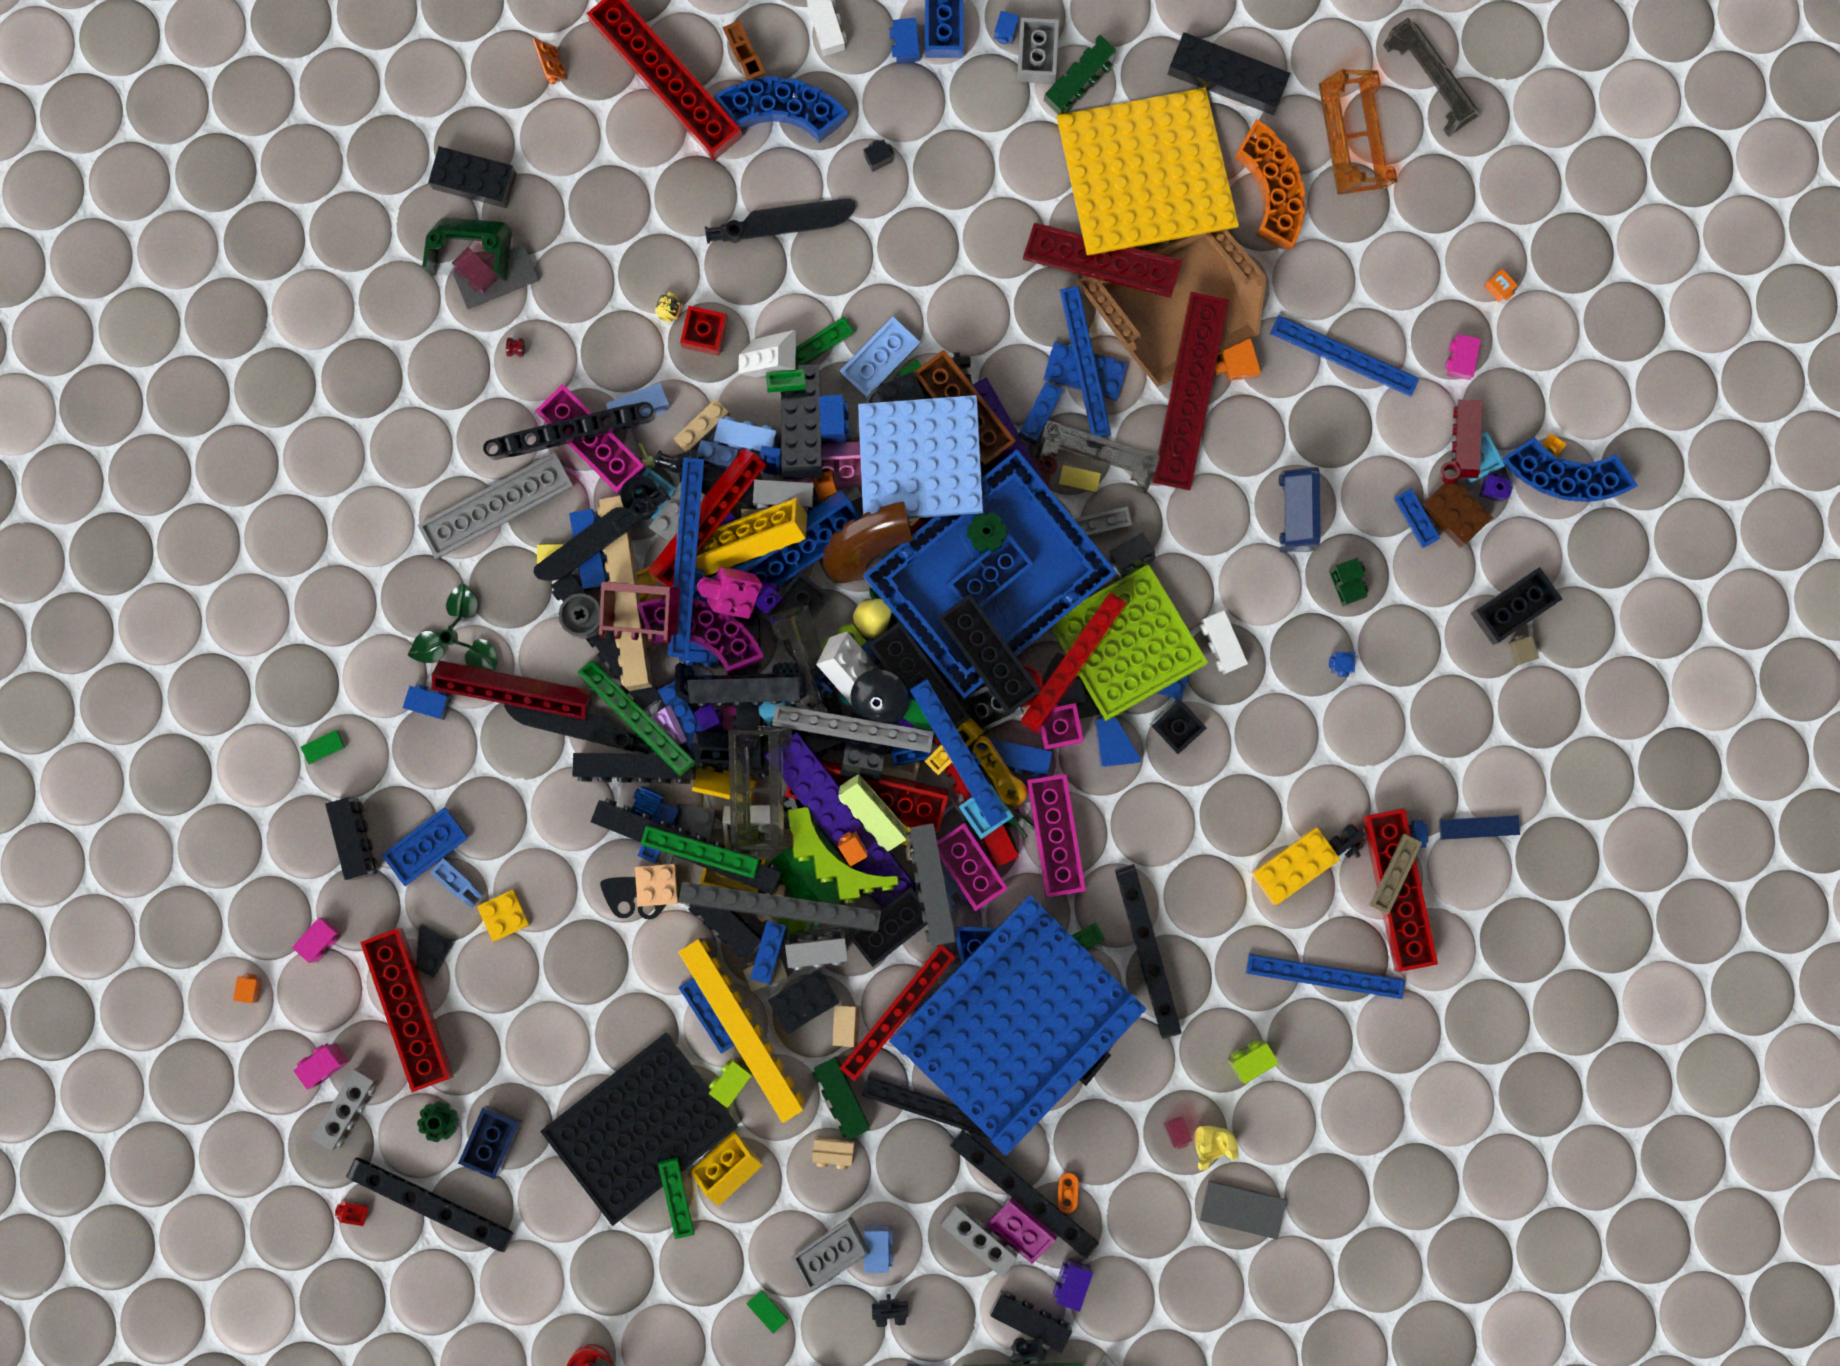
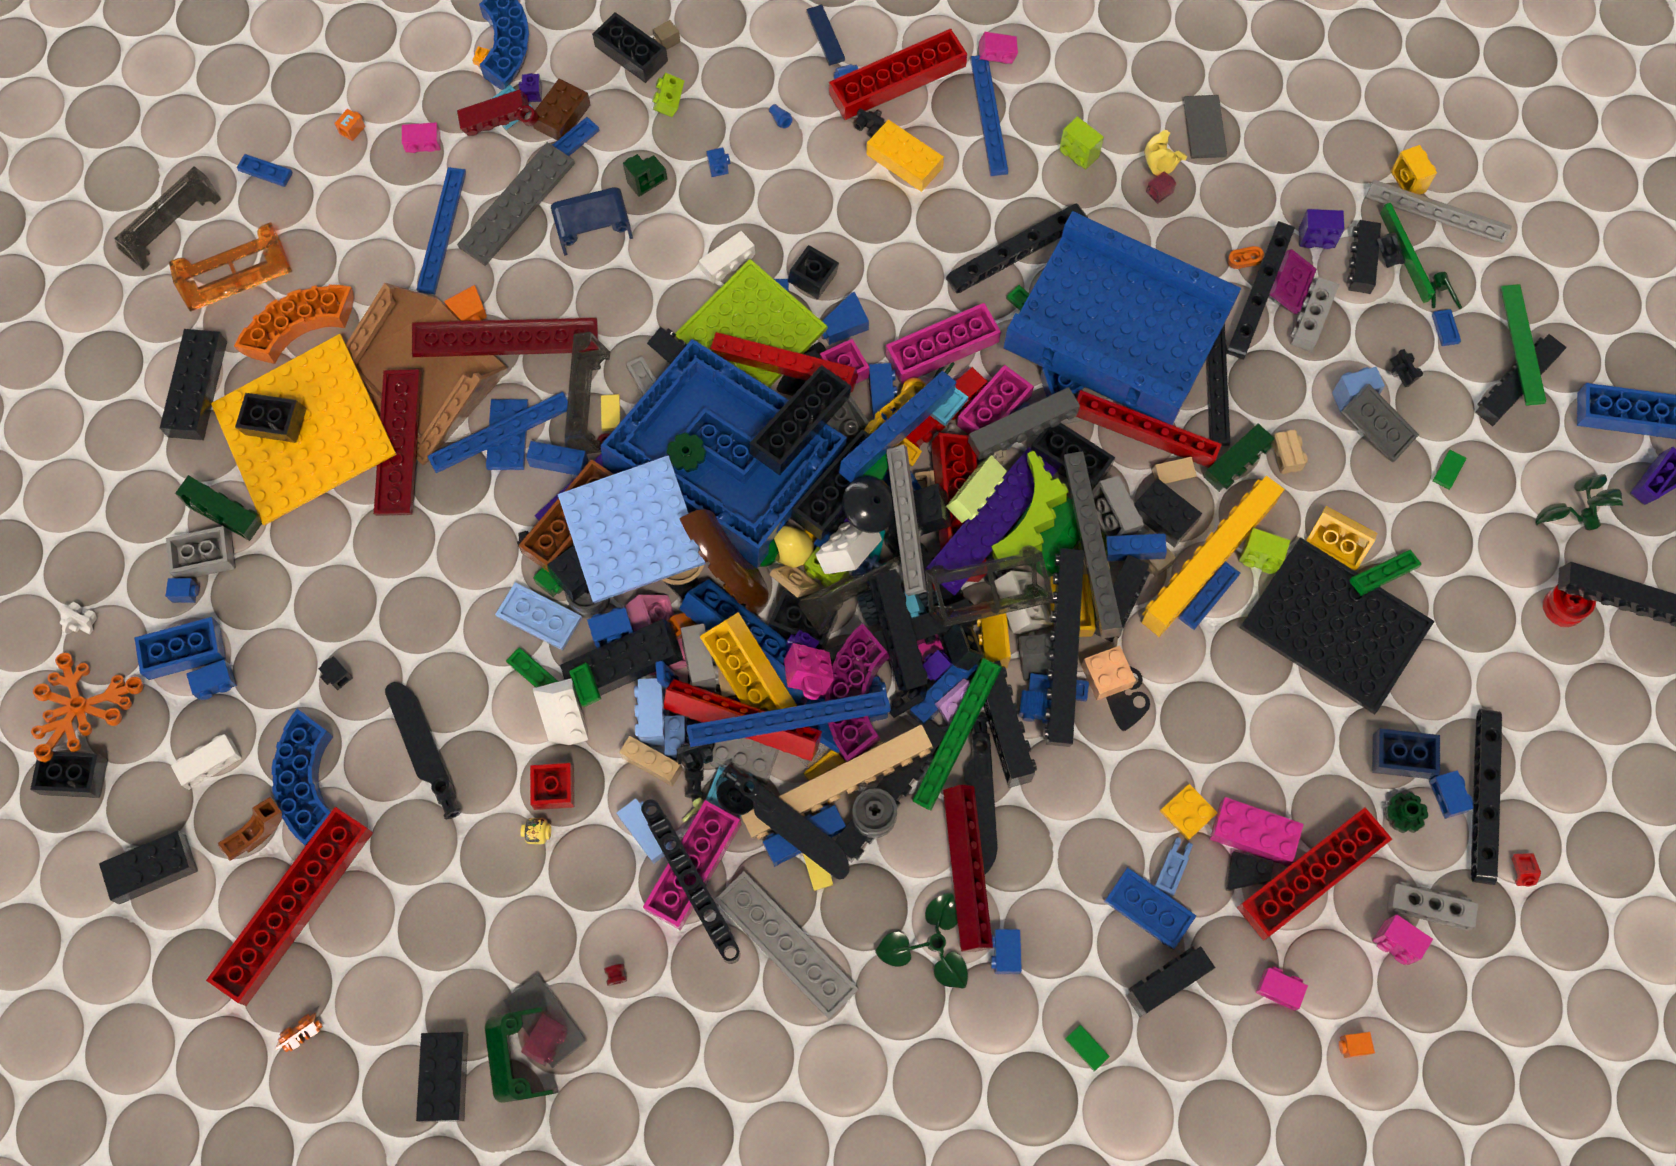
camera: 105 degrees left, 15 degrees down
(440, 1171) = (1451, 794): none -> blue brick
(462, 970) = (1256, 831): none -> dark pink brick
(607, 610) = (829, 729): dark red hinge -> none
(700, 851) = (1066, 628): green tile -> none
(837, 609) = (795, 580): none -> tan tile
(852, 848) = (1015, 497): orange brick -> none
(1159, 140) = (270, 417): none -> black brick
(1352, 439) = (516, 203): none -> dark grey plate
(1384, 747) = (781, 116): none -> blue cone
(1395, 874) = (887, 72): dark tan plate -> none
(1403, 1012) = (998, 47): none -> dark pink brick
(1443, 631) = (668, 94): none -> lime brick
(1470, 187) = (264, 170): none -> blue tile

